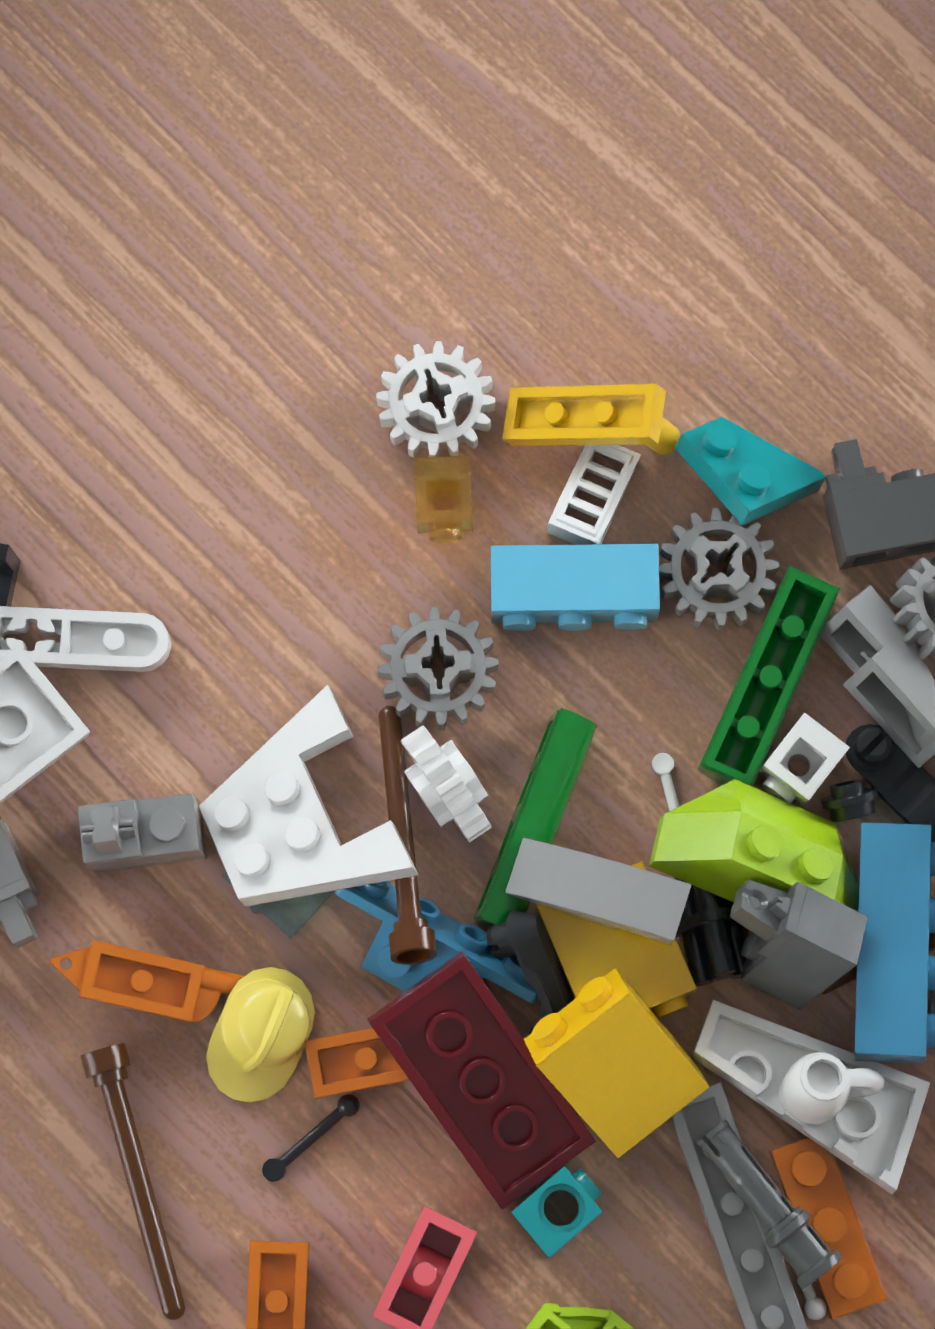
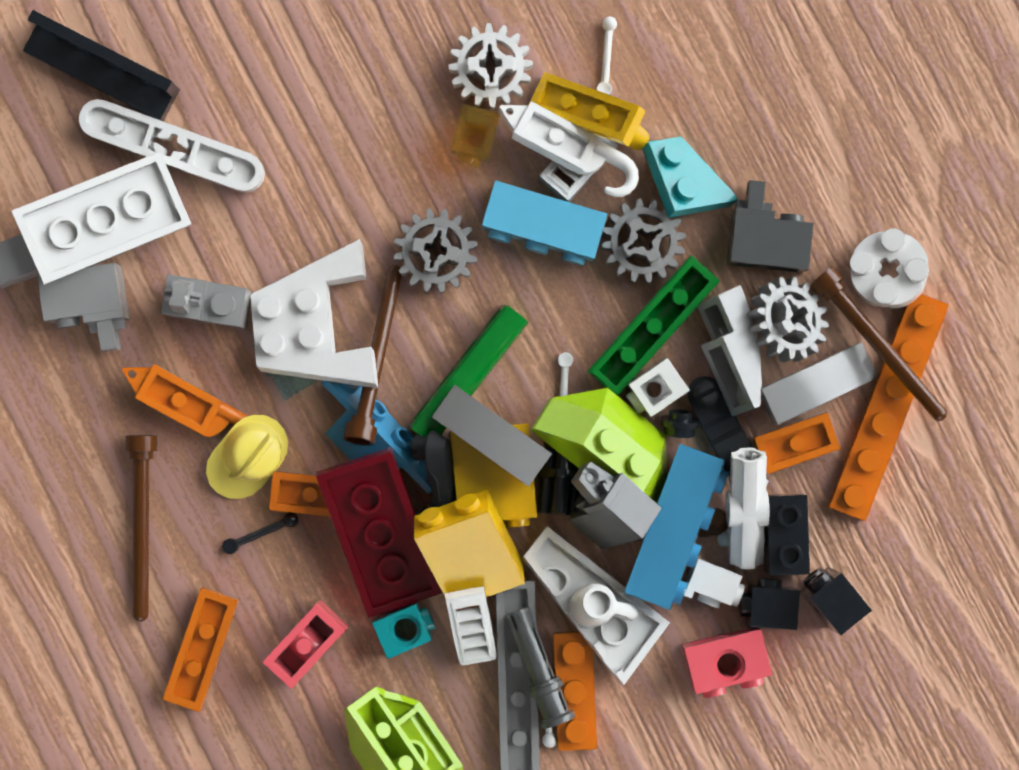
camera: 15 degrees right, 10 degrees up
(446, 783) = (415, 332): white gear -> none
(572, 468) = (567, 144): none -> white plate
(577, 302) = (609, 25): none -> white hinge
(667, 1202) = (471, 627): none -> white slope

